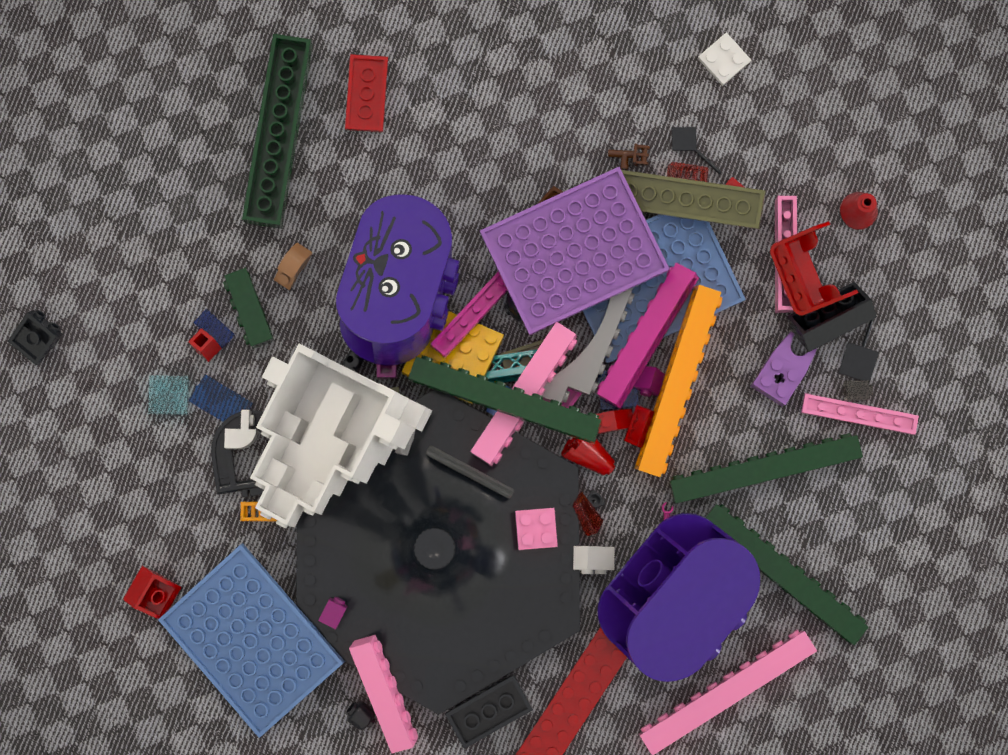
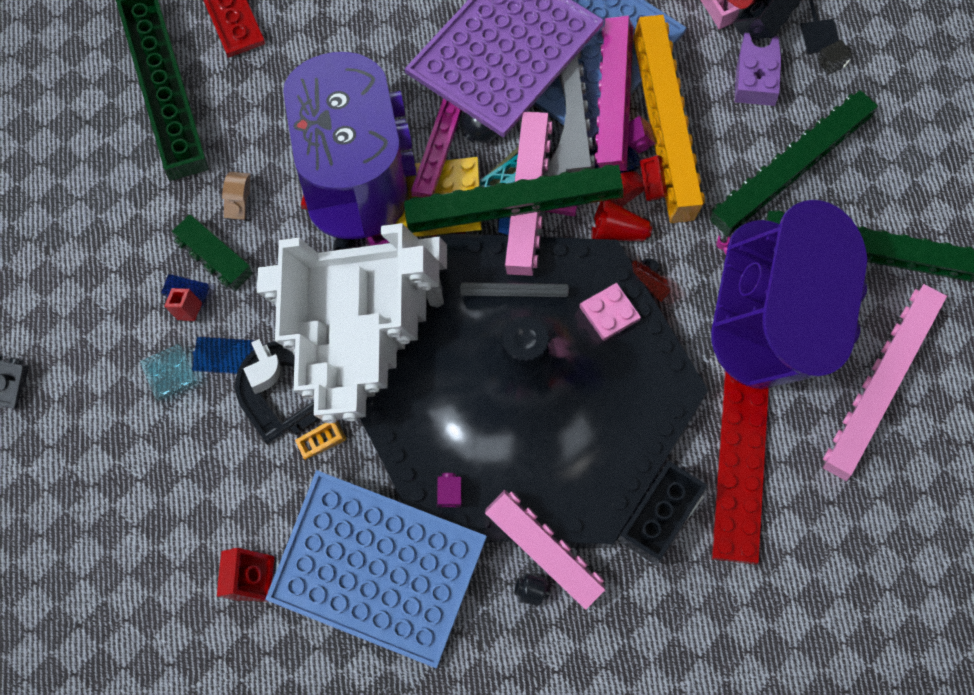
camera: 25 degrees left, 15 degrees down
(593, 558) = (681, 315): white brick -> none
(859, 414) = (849, 76): bright pink plate -> none

